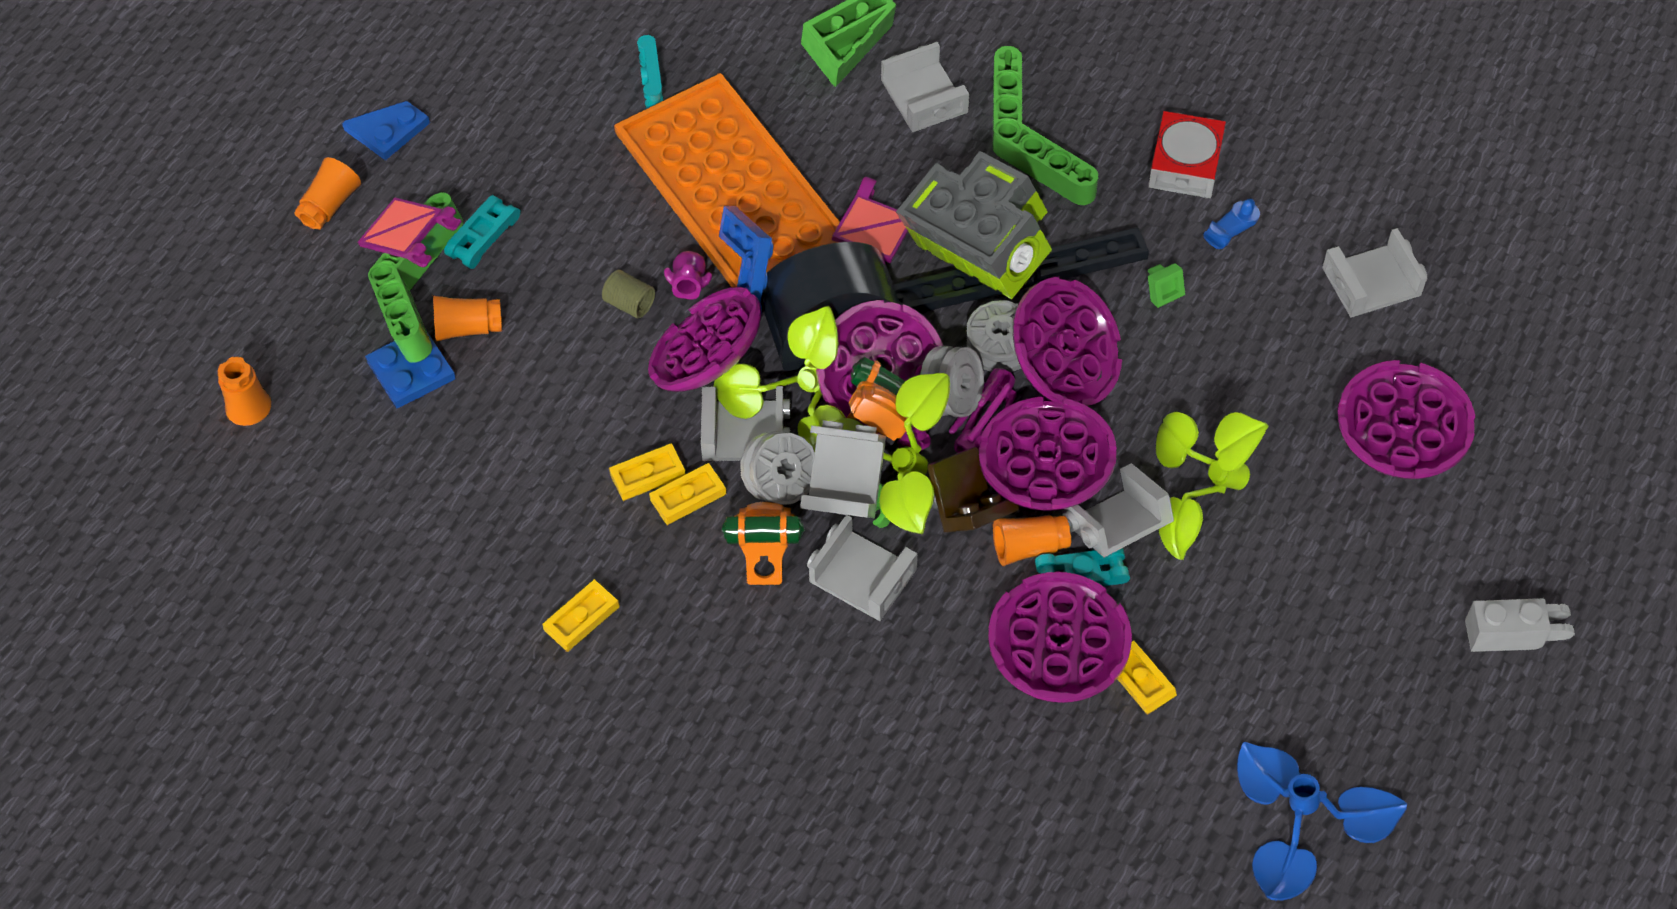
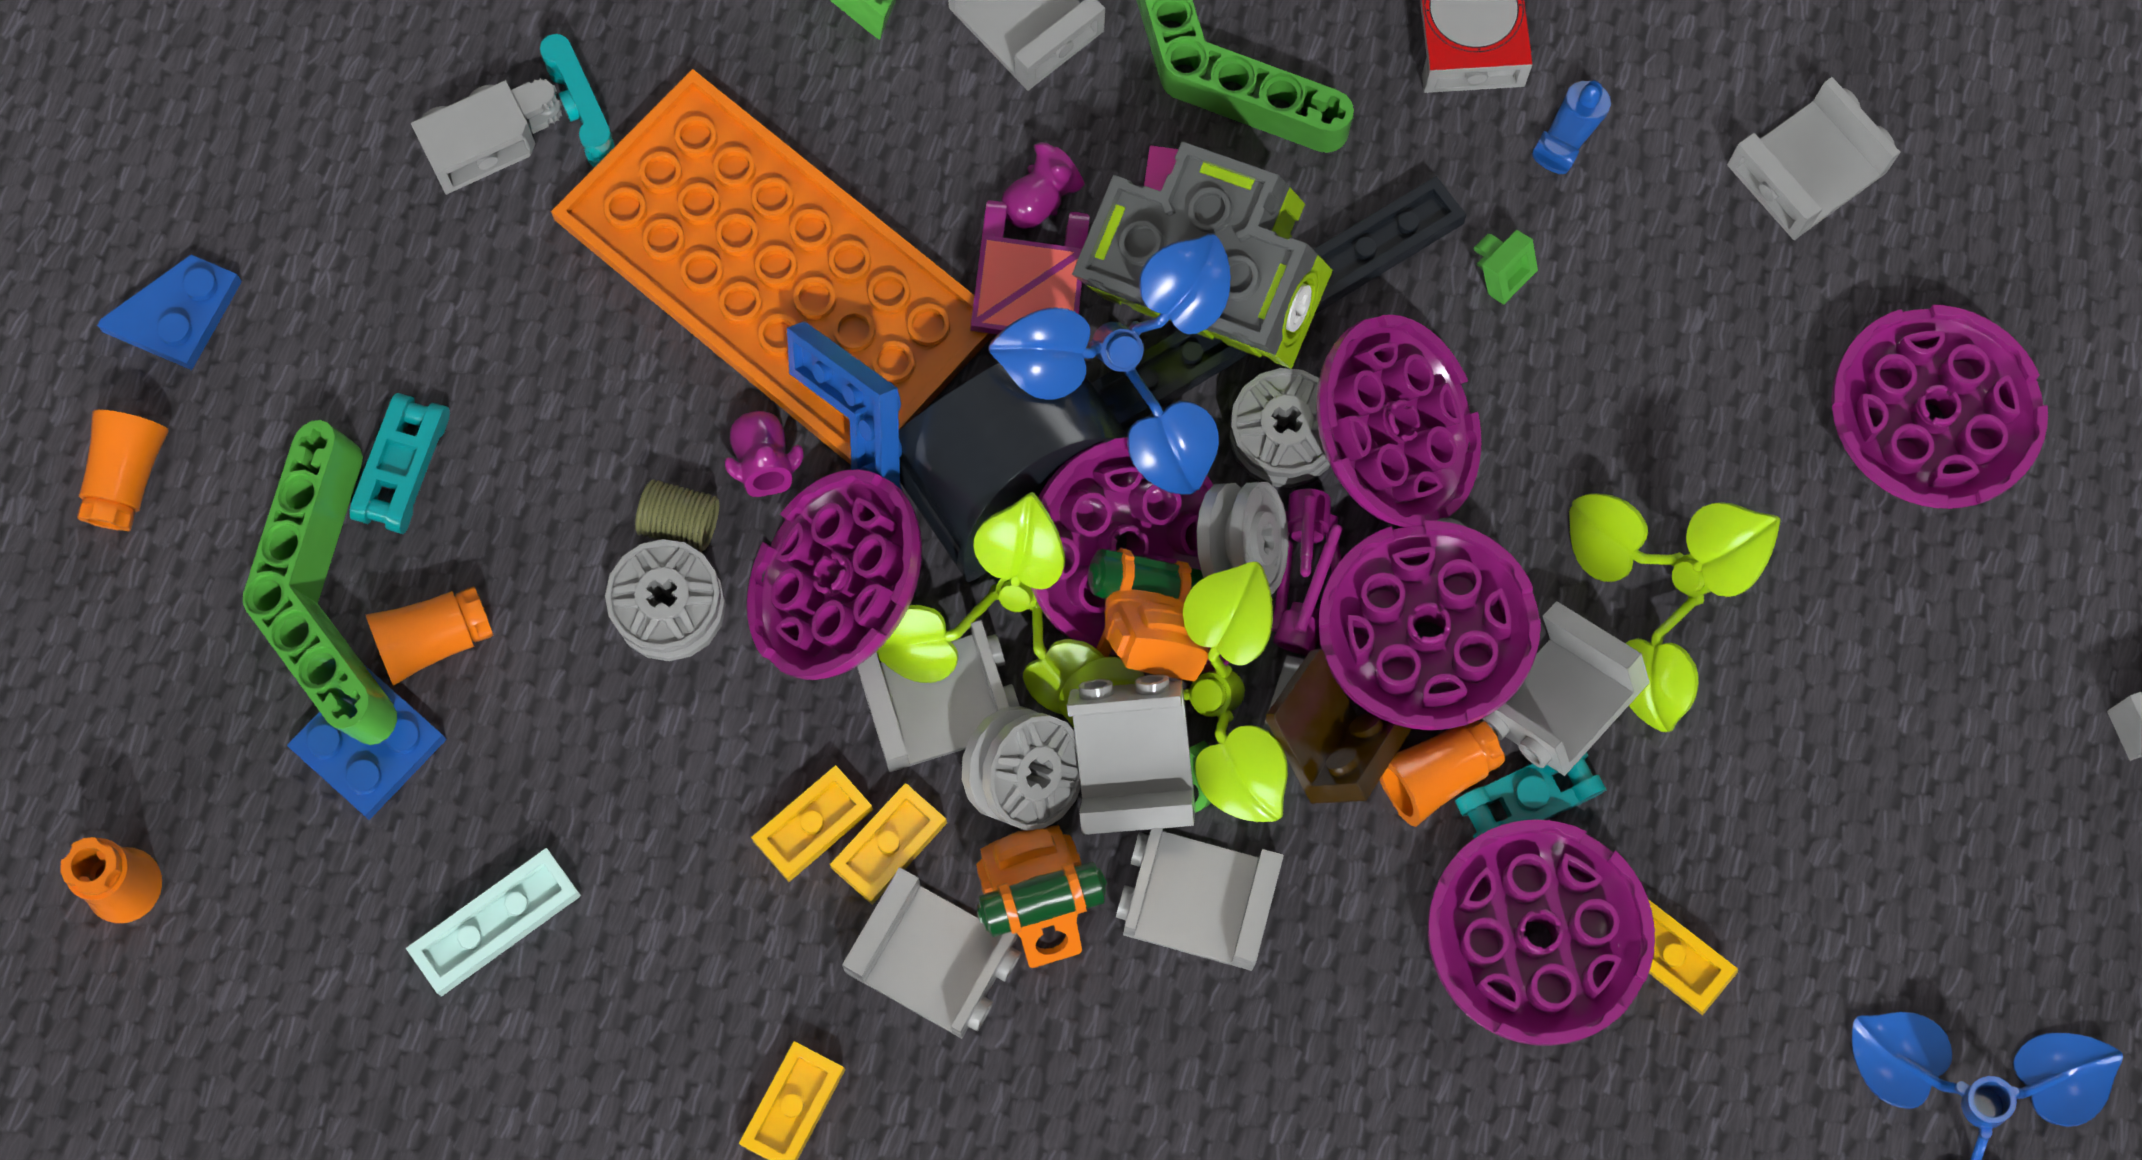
camera: 20 degrees left, 15 degrees up
(404, 226) = (273, 503): flag -> none
(446, 474) = (493, 922): none -> light aqua plate
(593, 77) = (485, 130): none -> light grey hinge
(605, 335) = (653, 627): none -> light grey wheel
(689, 557) = (931, 956): none -> light grey panel
(863, 245) = (1048, 350): none -> blue plant
(899, 181) = (1040, 192): none -> magenta animal

